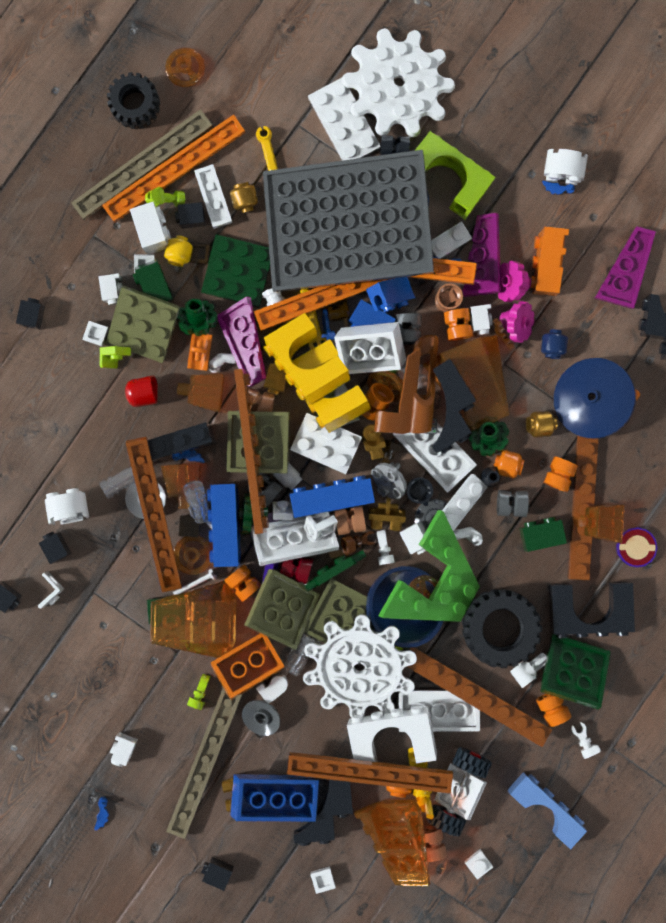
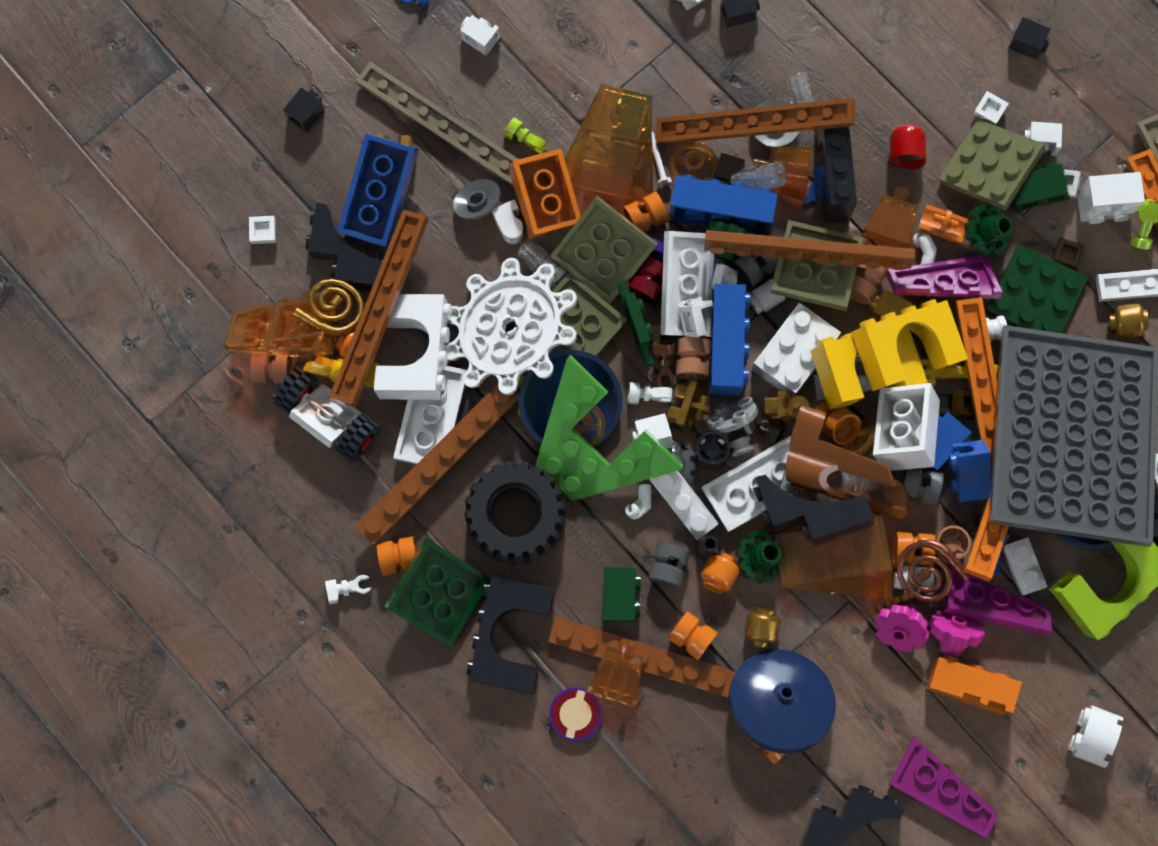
camera: 110 degrees right, 10 degrees down
(66, 507) = (785, 28): white brick -> none
(110, 355) = (959, 120): lime bracket -> none
(178, 251) = (1075, 226): yellow head -> none
(190, 215) = (1117, 252): black brick -> none
(325, 322) = (945, 385): blue piece -> none
(395, 811) = (334, 303): none -> pearl gold piece
(408, 469) = (741, 446): none -> white bush
(477, 312) = (924, 574): none -> copper piece
(478, 864) = (229, 421): white plate -> none
(527, 670) = (451, 532): white axle -> none
(528, 793) = (301, 502): medium blue arch -> none
(554, 344) = (862, 667): dark blue head -> none
(555, 188) = (1067, 722): blue piece -> none

